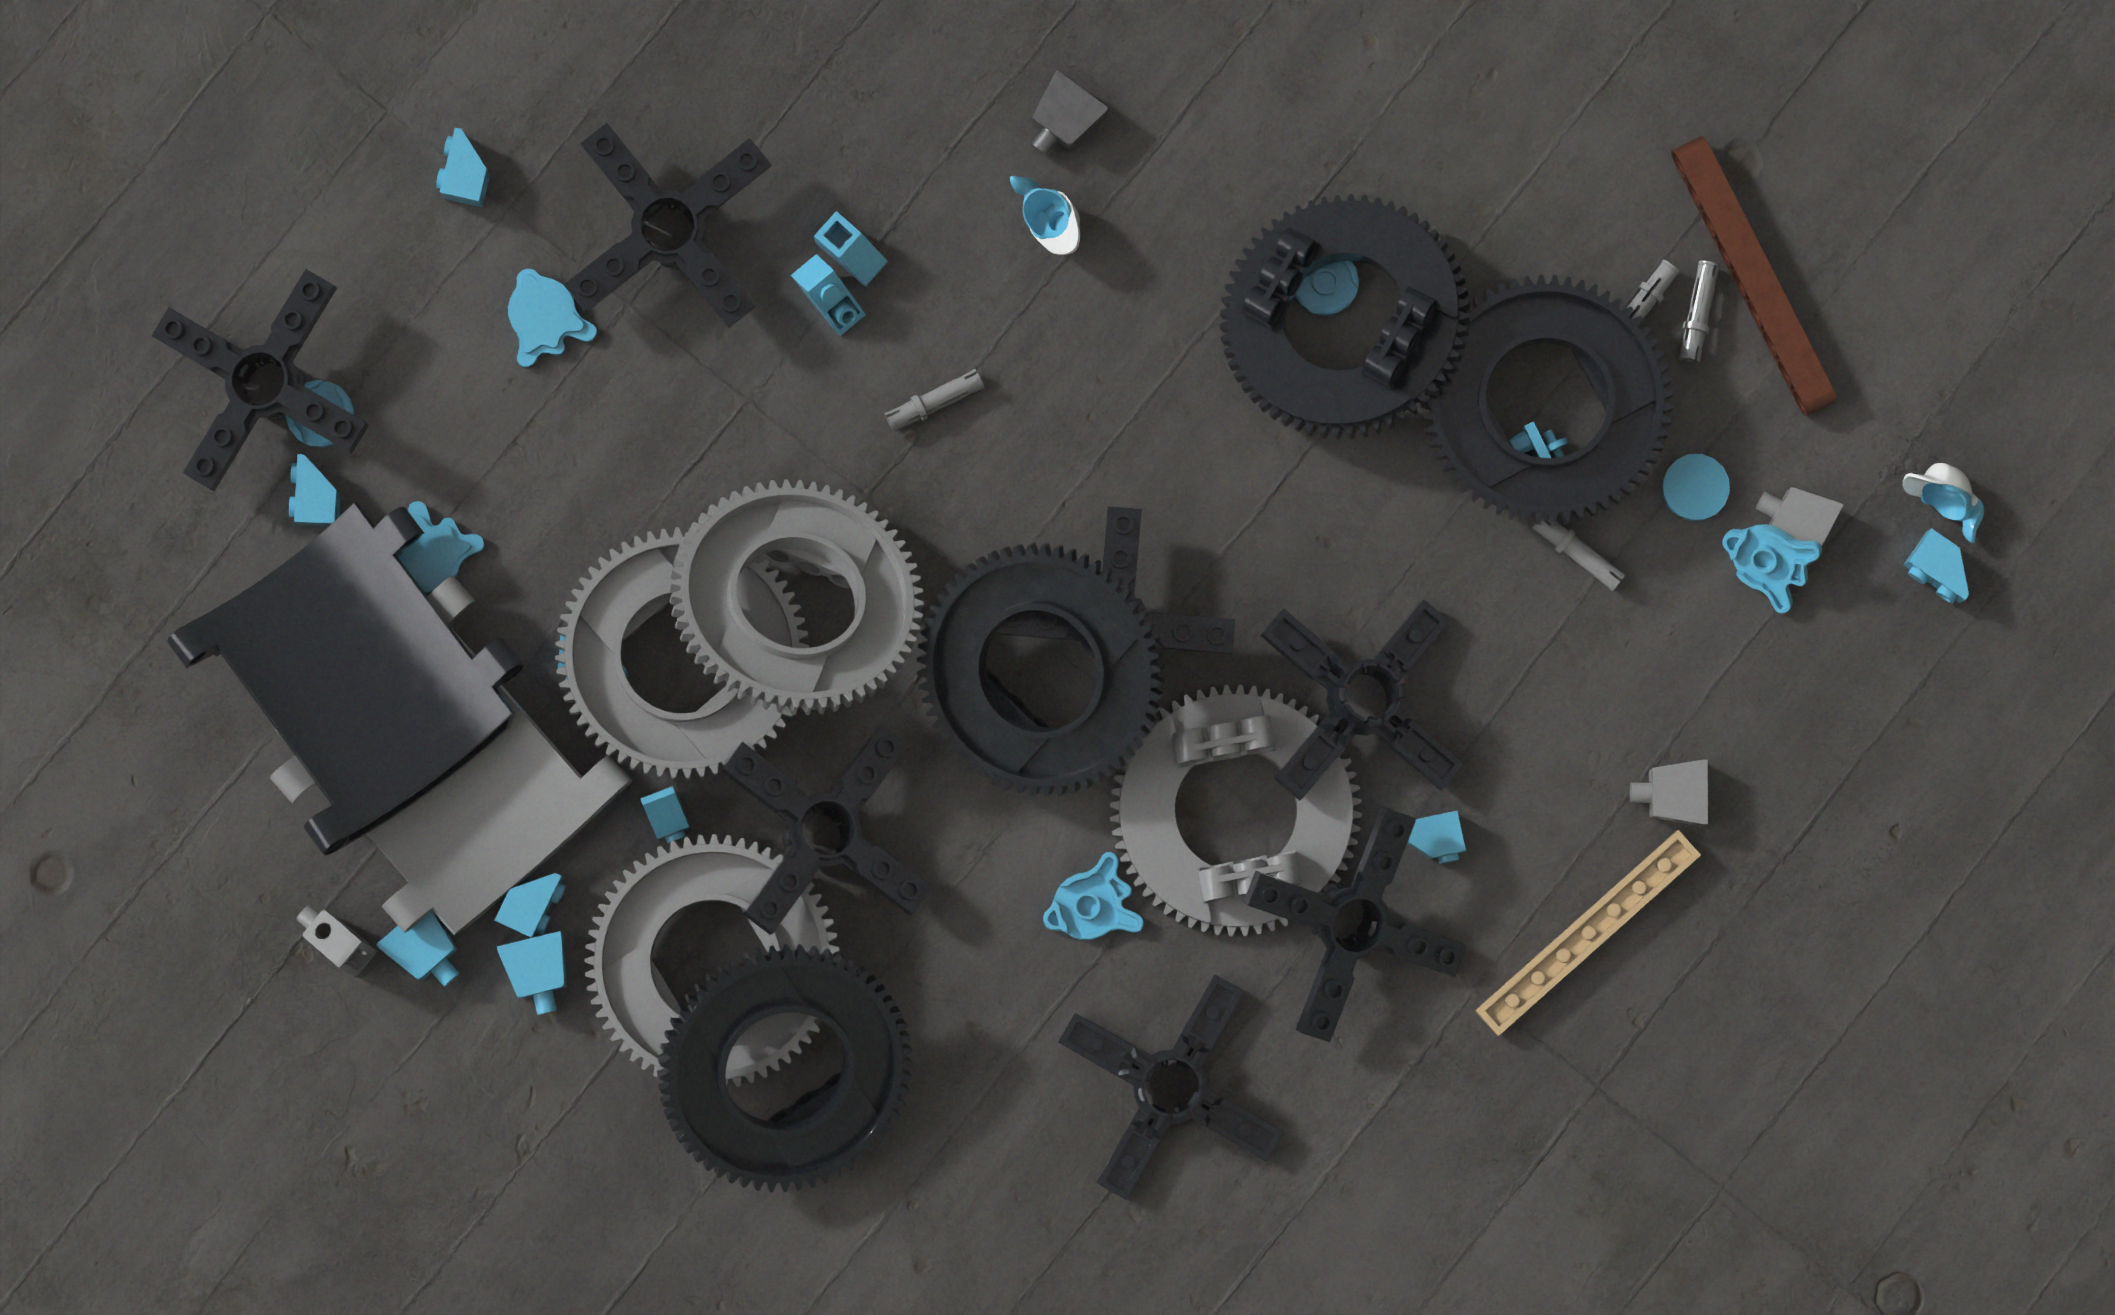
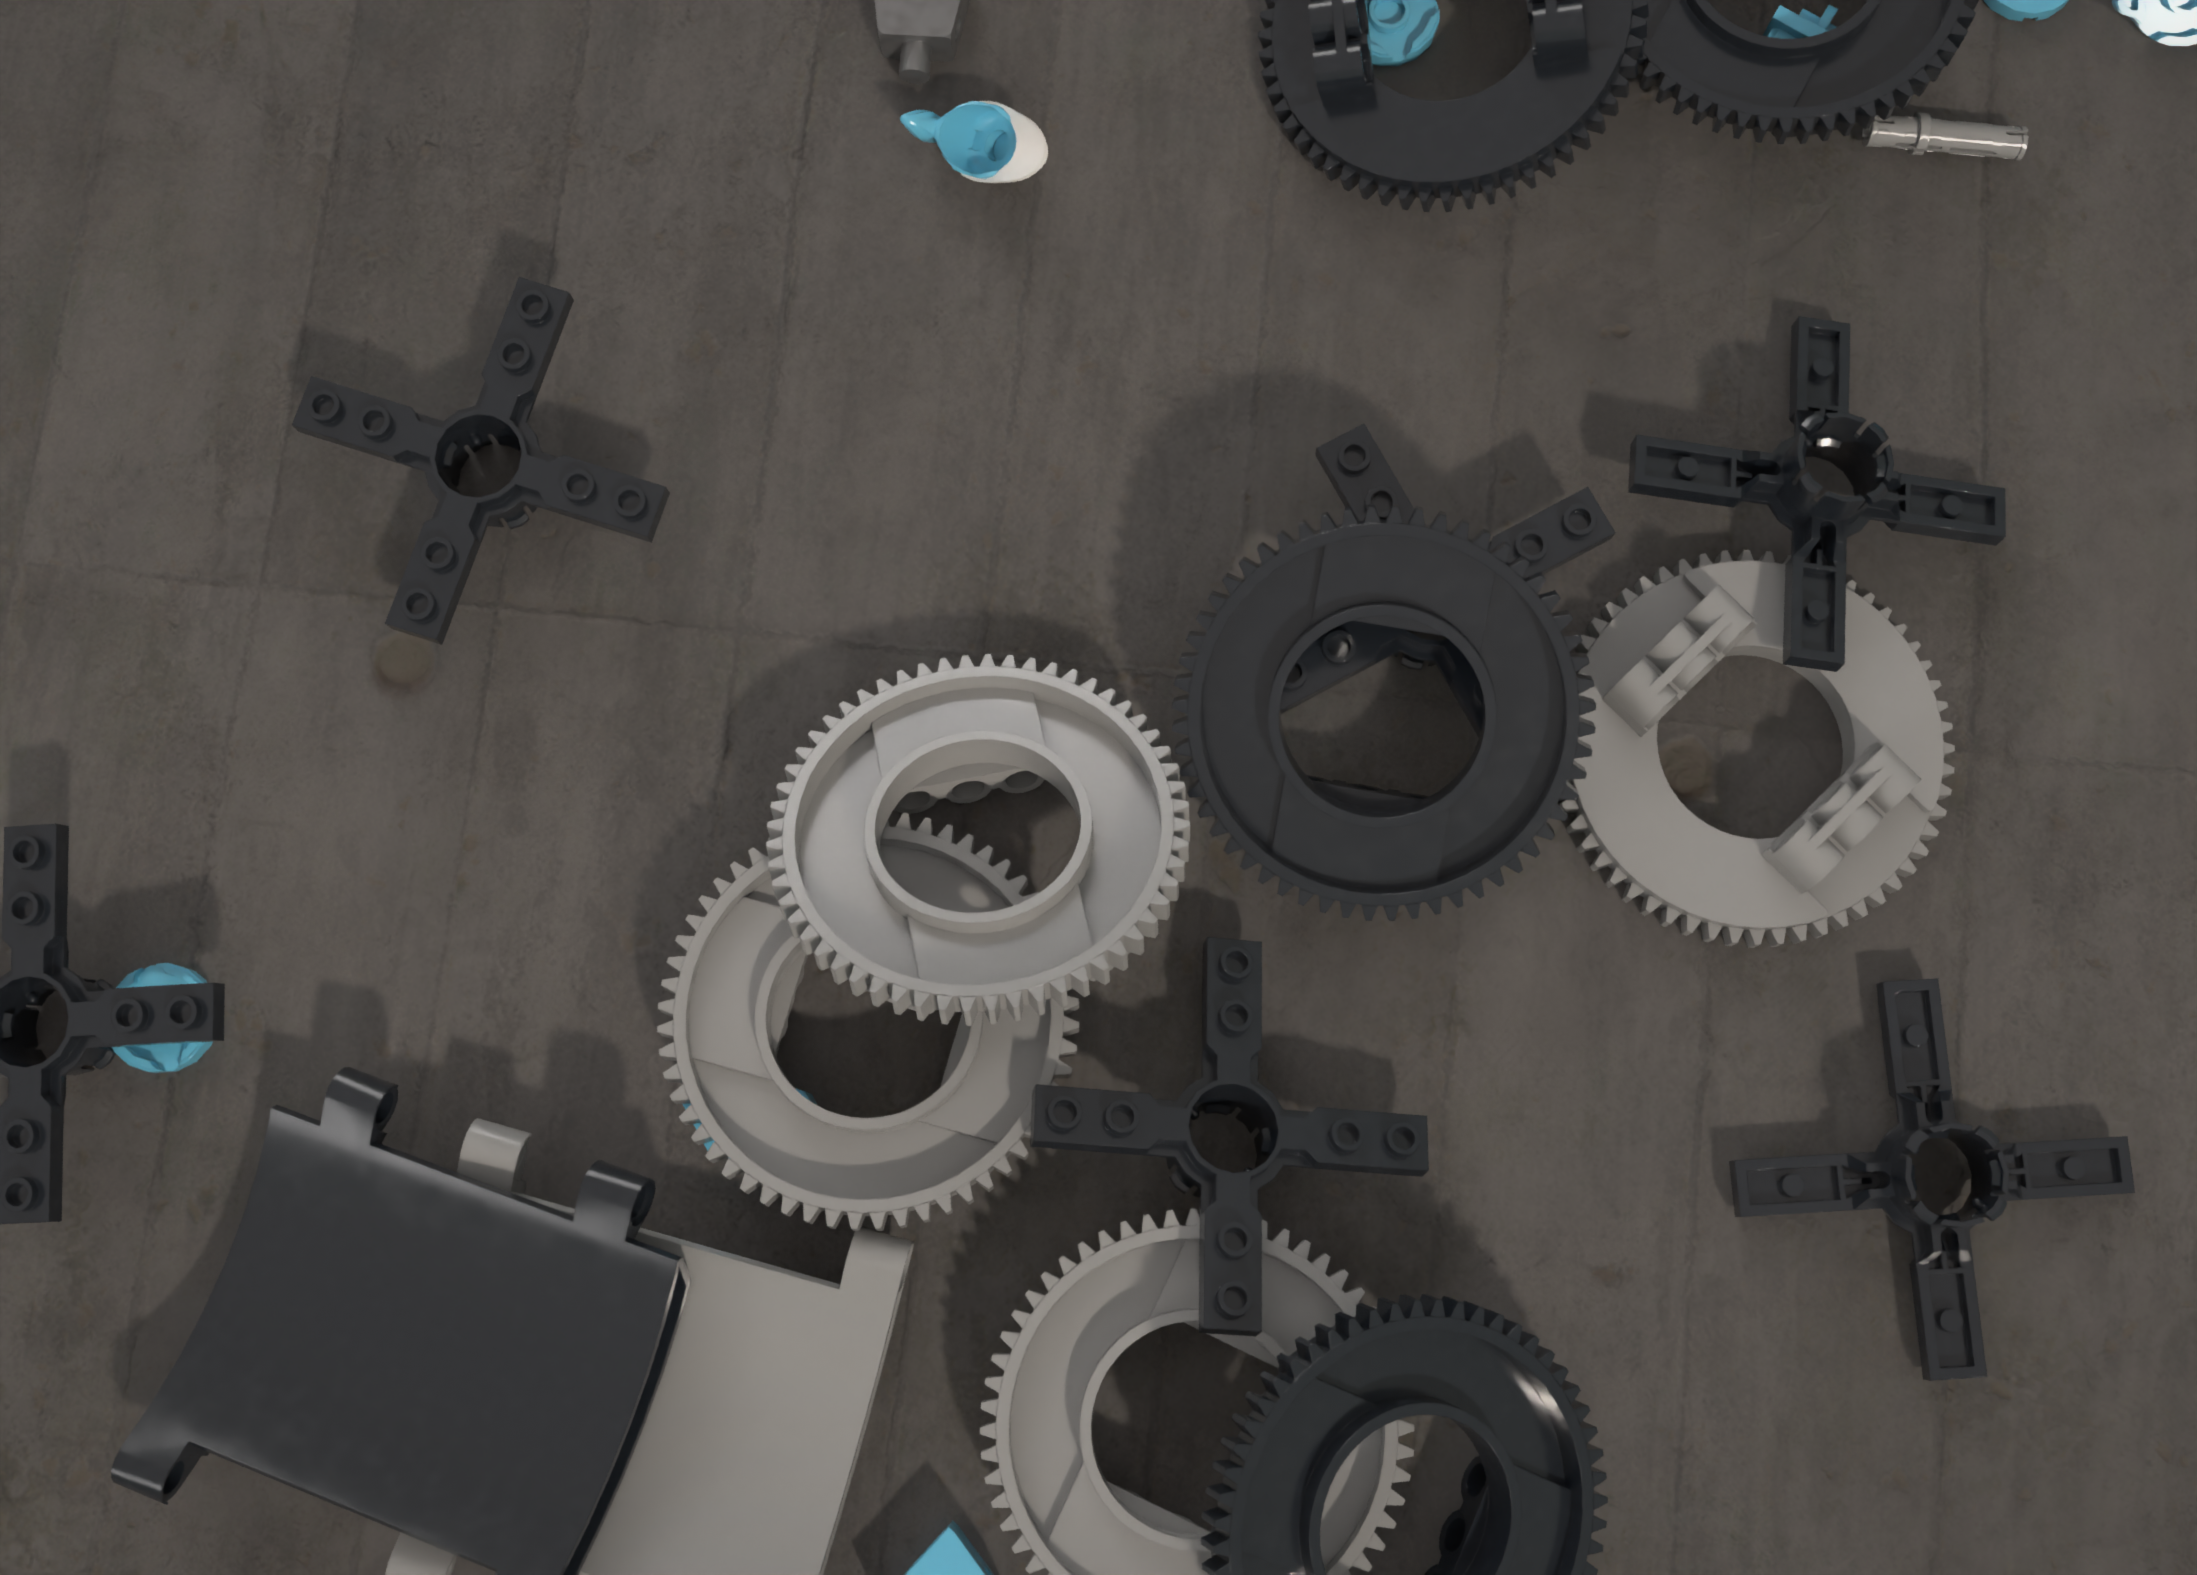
camera: 25 degrees left, 5 degrees down
(315, 498) = (218, 1136): medium azure slope -> none
(438, 551) = (436, 1098): medium azure tile -> none
(465, 175) = (166, 573): medium azure slope -> none
(528, 904) = (879, 1517): medium azure slope -> none
(543, 316) = (395, 694): medium azure tile -> none
(666, 815) = (992, 1259): medium azure slope -> none
(828, 294) = (758, 422): medium azure slope -> none
(850, 249) = (747, 345): medium azure slope -> none
(928, 403) = (978, 488): light grey pin -> none
(1091, 903) = (1647, 997): medium azure tile -> none
(1375, 931) = (1978, 794): black piece -> none
(1438, 837) = (2032, 609): medium azure slope -> none

